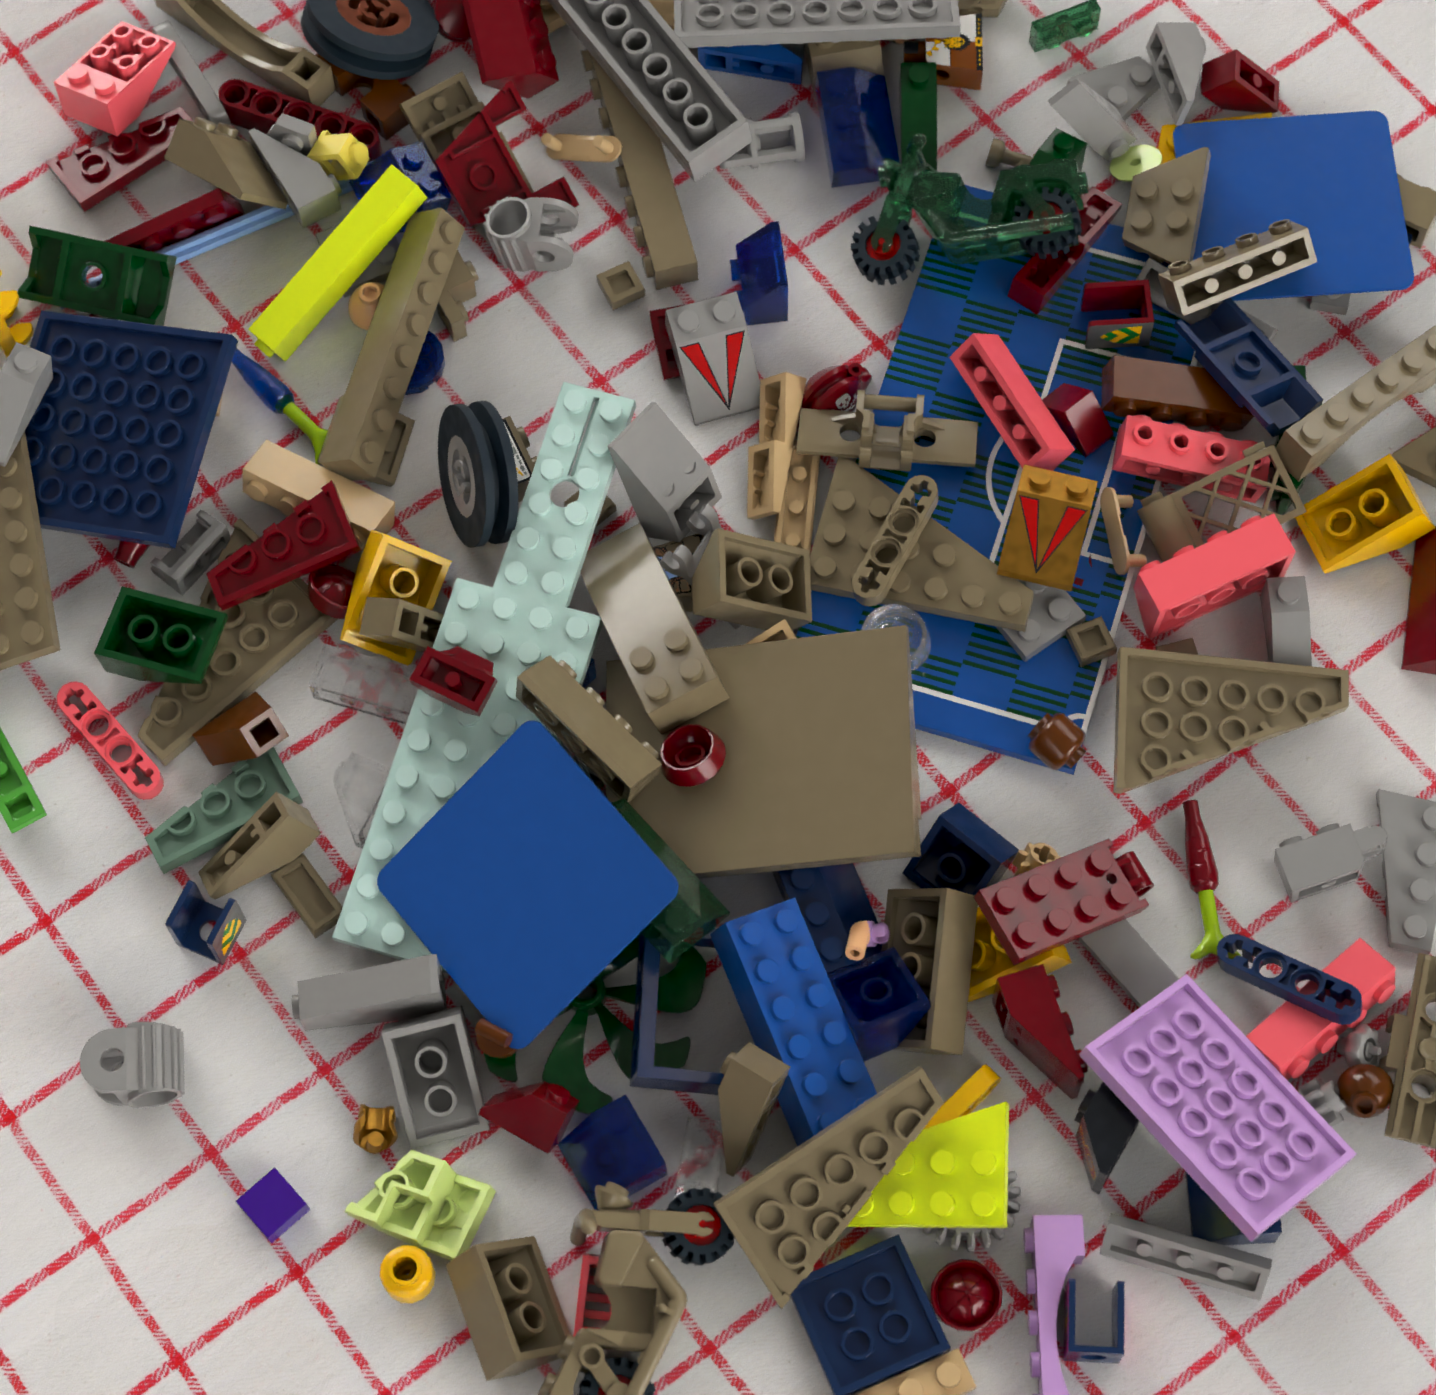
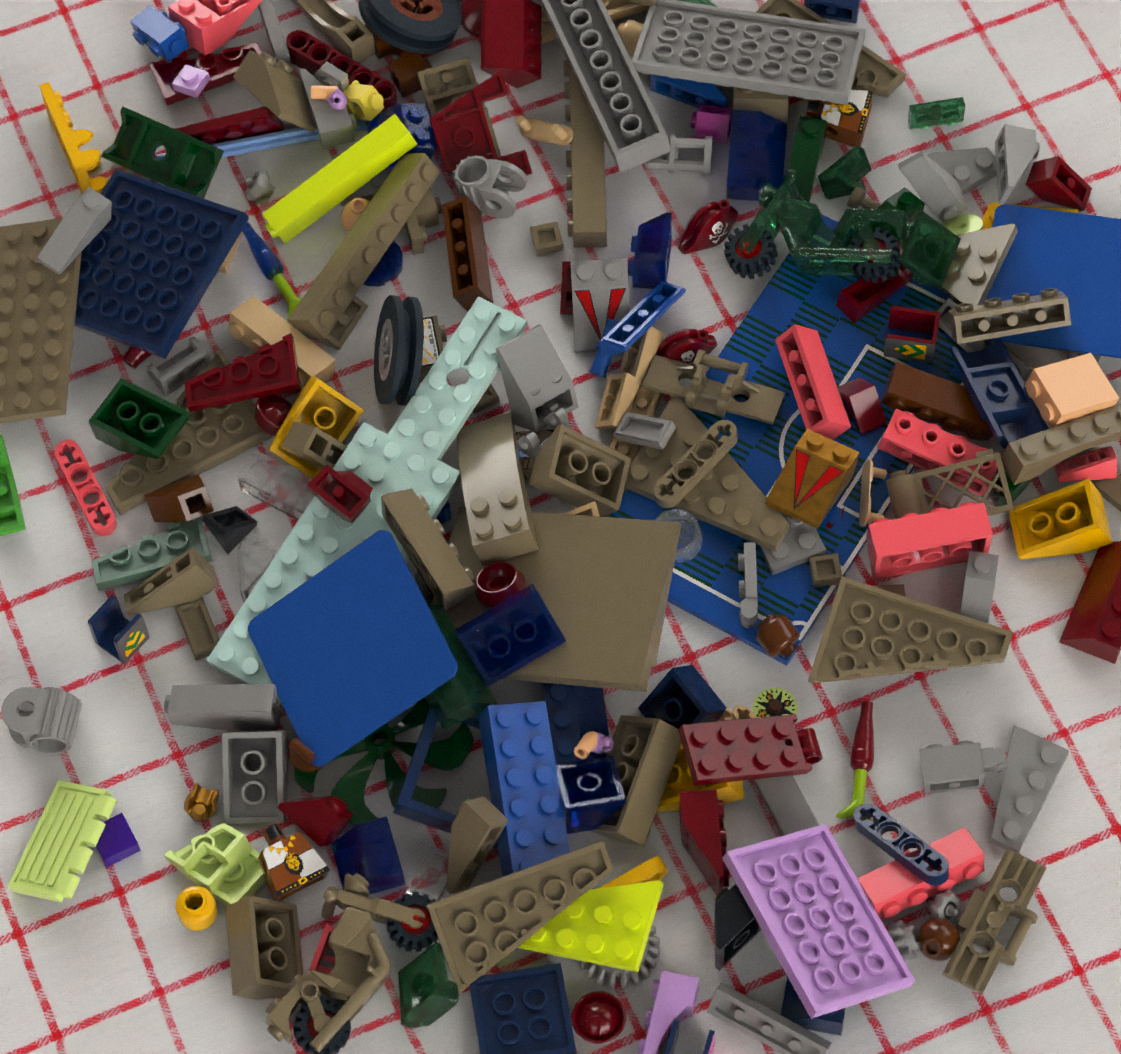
camera: 15 degrees right, 5 degrees down
(50, 119) = (159, 33): none -> blue brick
(108, 173) = (191, 81): none -> lavender plate
(203, 1225) = (61, 841): none -> yellowish green hinge
(232, 293) = (259, 186): none -> light grey piece
(299, 155) = (331, 94): none -> arm
(314, 750) = (229, 526): none -> black slope
(513, 1185) = (289, 863): none -> torso
(526, 326) = (466, 252): none -> reddish brown brick
(726, 819) = (510, 635): none -> clear blue slope
(736, 1312) = (425, 989): none -> clear green slope
(737, 412) = (601, 363): none -> blue pin
(773, 366) = (640, 318): none -> blue slope
(790, 93) = (712, 121): none -> magenta brick
(816, 510) = (644, 430): none -> light grey tile
(819, 229) = (708, 227): none -> dark red hat
(974, 125) = (845, 174): none -> clear green slope
(1003, 683) = (748, 586): none -> light grey hinge
(1072, 830) = (774, 703): none -> piece
(1113, 203) = (929, 251): none -> clear green slope
(1338, 345) = (1070, 389): none -> light nougat slope
(1381, 435) = (1091, 465): none -> coral slope

